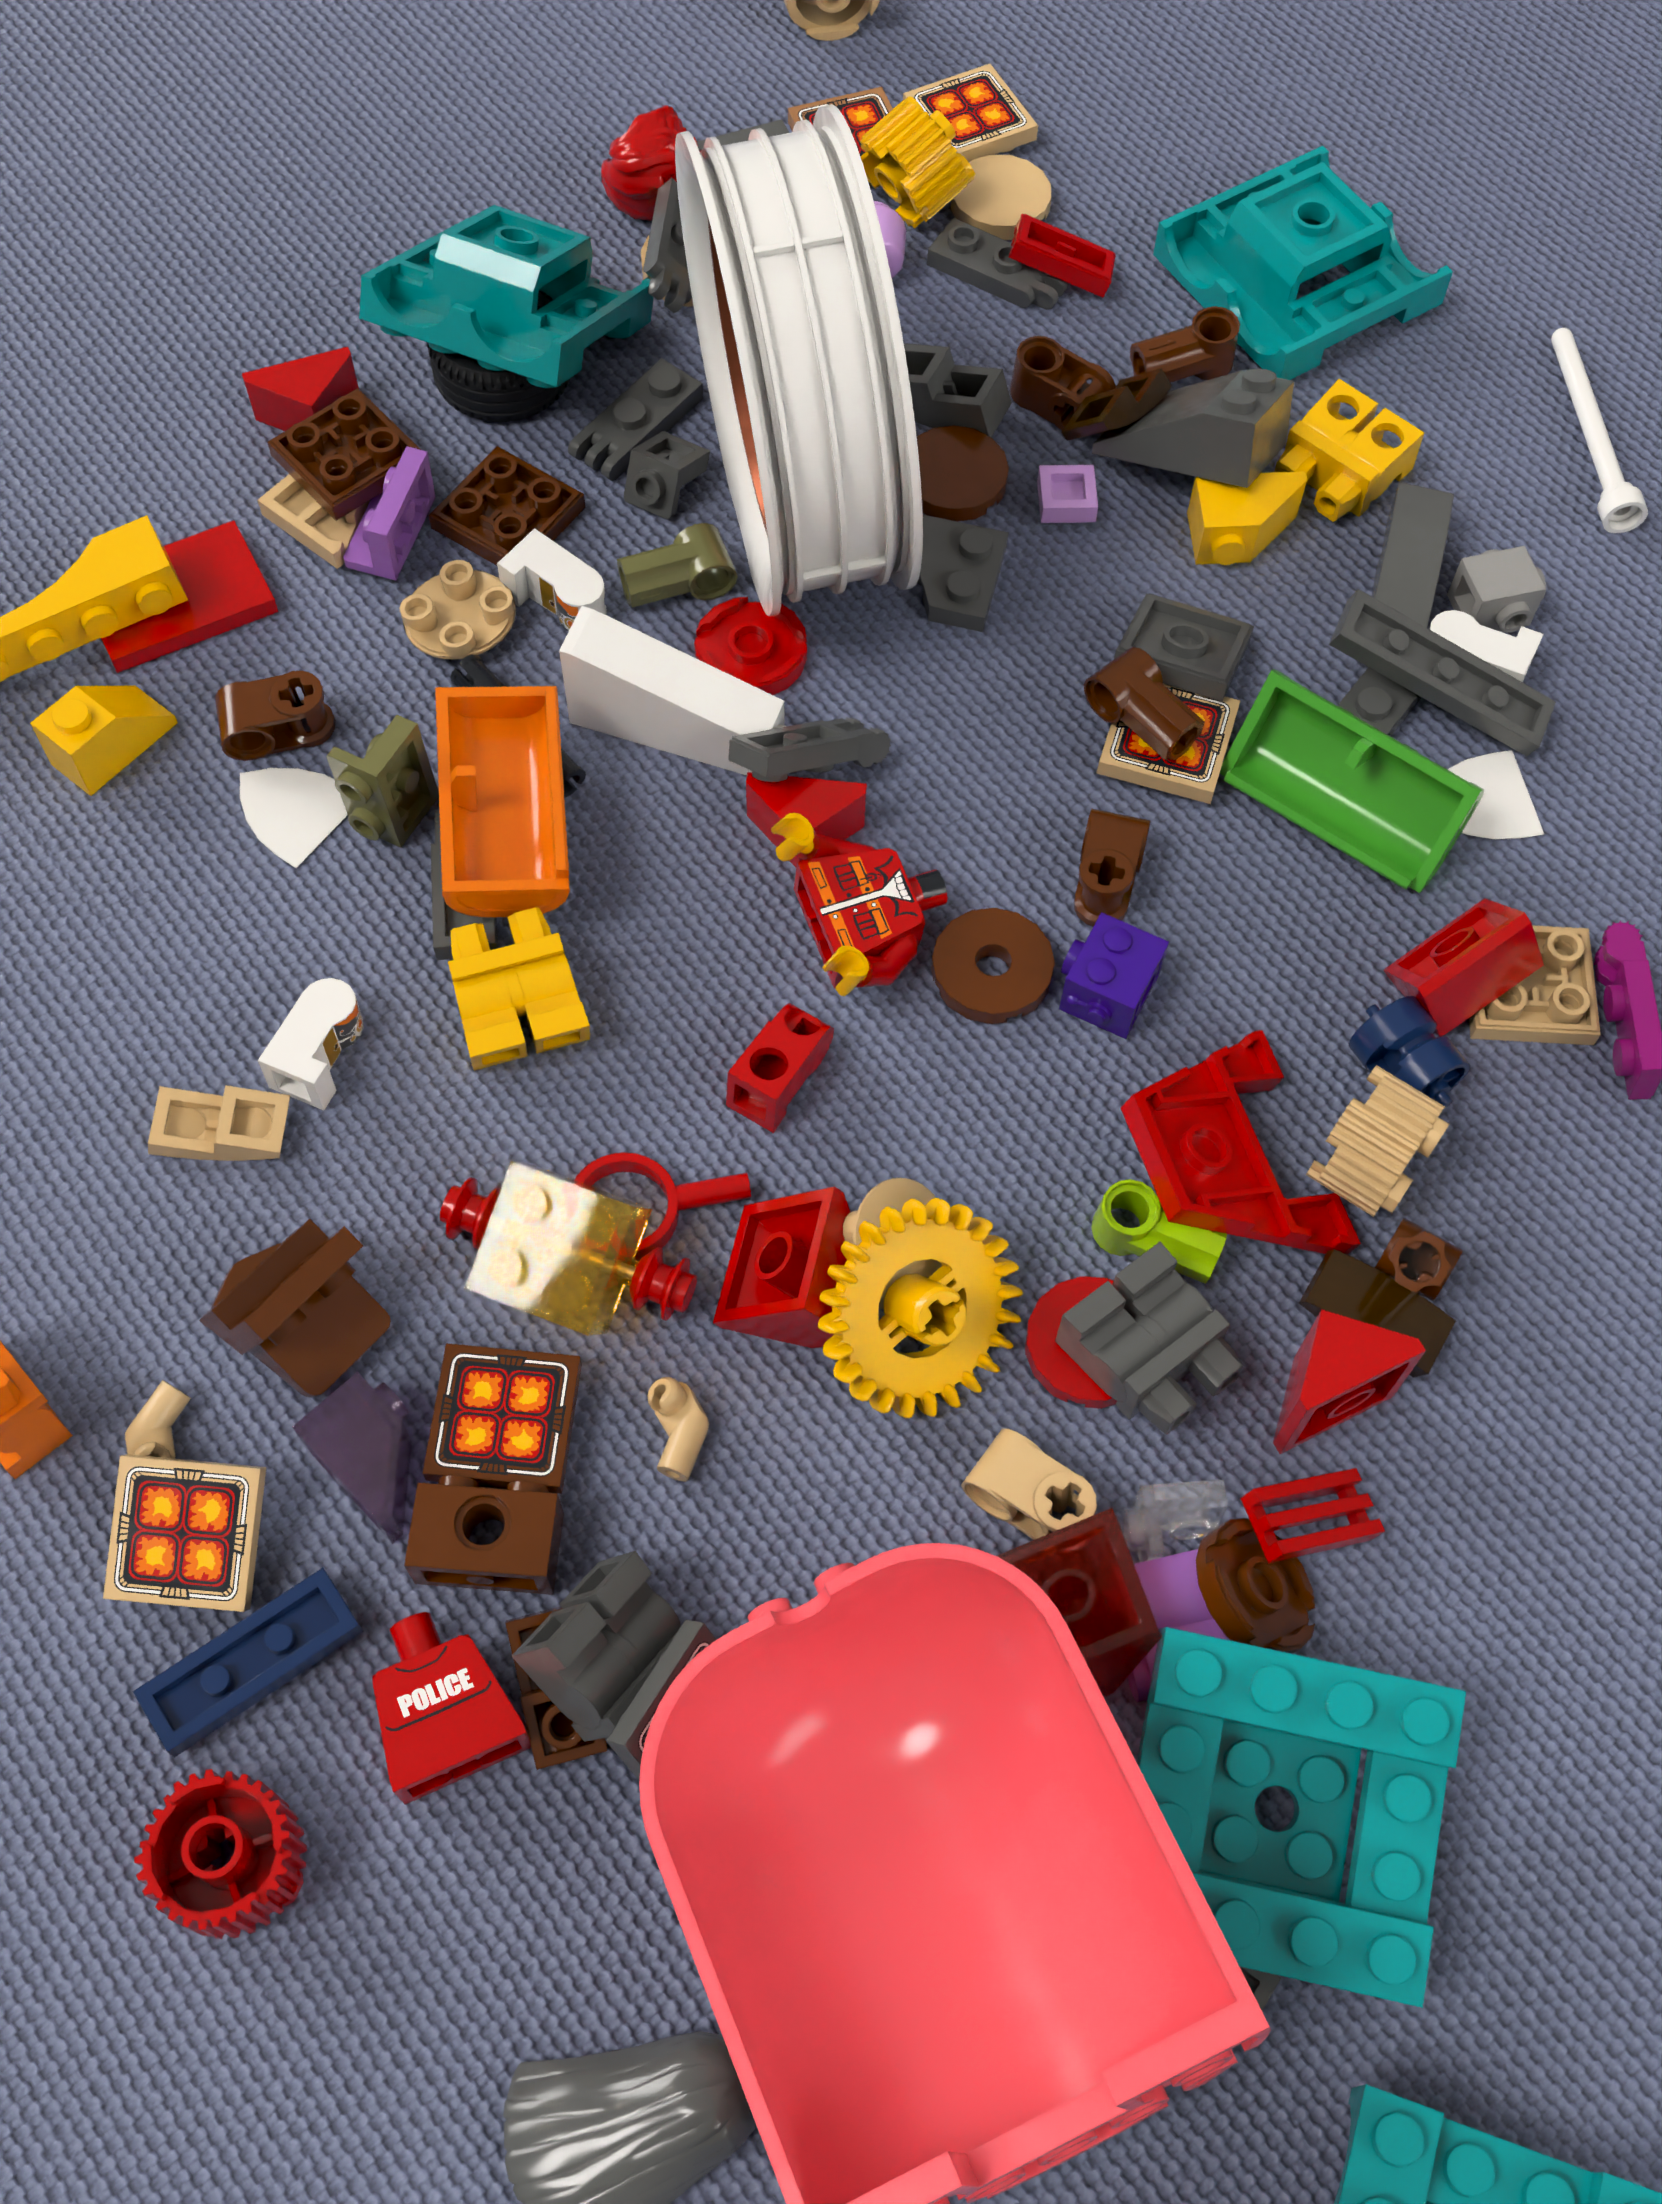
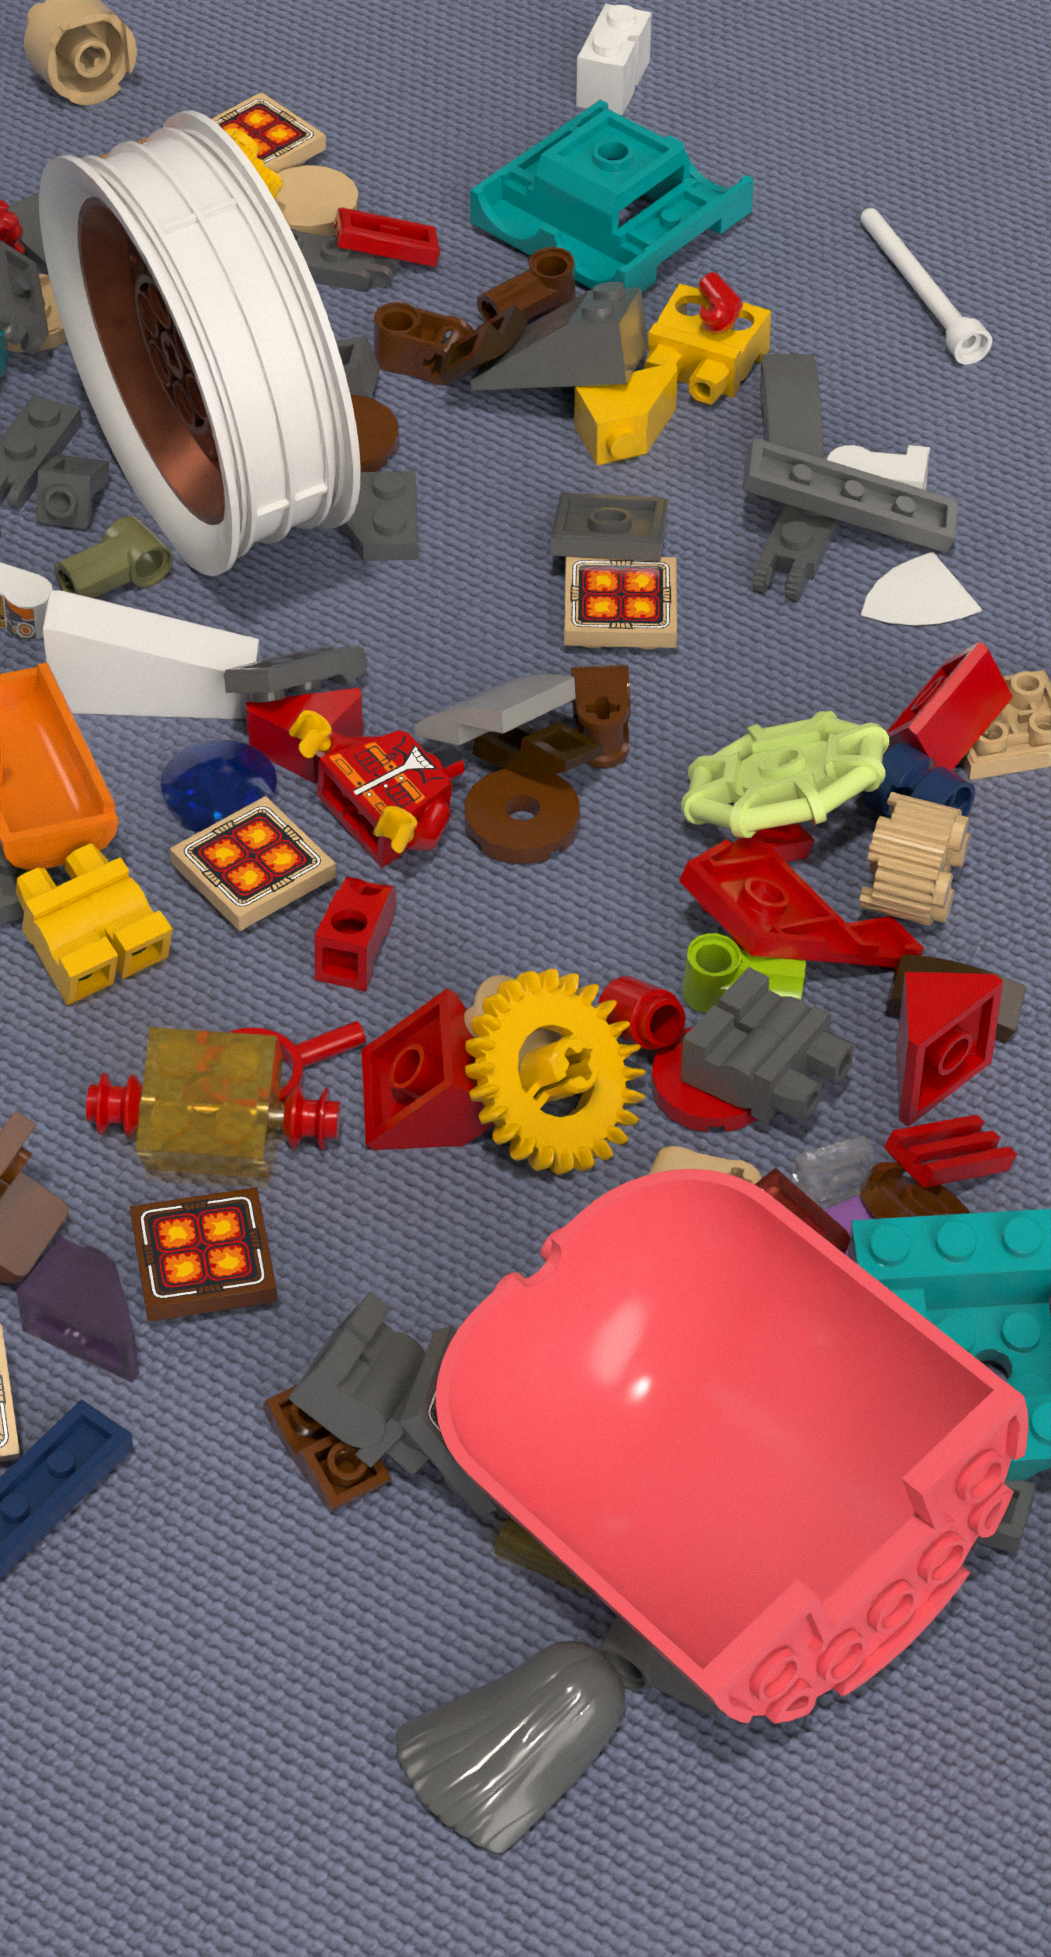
camera: 15 degrees left, 15 degrees down
(188, 1836) = (76, 1626): red brick -> none
(441, 1711) = (235, 1480): red torso -> none
(518, 1561) = (222, 1344): reddish brown brick -> none
(684, 1424) = (367, 1222): tan arm -> none
(701, 851) = (216, 781): none -> clear blue dish
(702, 957) = (252, 863): none -> tile
(752, 645) = (210, 601): red tile -> none
(1000, 843) = (498, 708): none -> light grey slope
(1025, 899) = (537, 752): none -> dark brown slope
(1039, 1250) = (652, 1012): none -> red brick
(1067, 493) = (459, 429): lavender plate -> none
(1111, 974) = (633, 794): dark purple head -> none
(1134, 692) = (579, 565): reddish brown piece -> none
(1245, 1010) = (785, 774): none -> yellowish green plate
(1349, 783) = (796, 596): bright green container -> none
(1352, 98) = (614, 57): none -> white piece
(1376, 418) = (724, 304): none -> red arm
(1418, 1259) = (979, 936): reddish brown piece -> none
(1498, 588) = (878, 420): light grey brick -> none

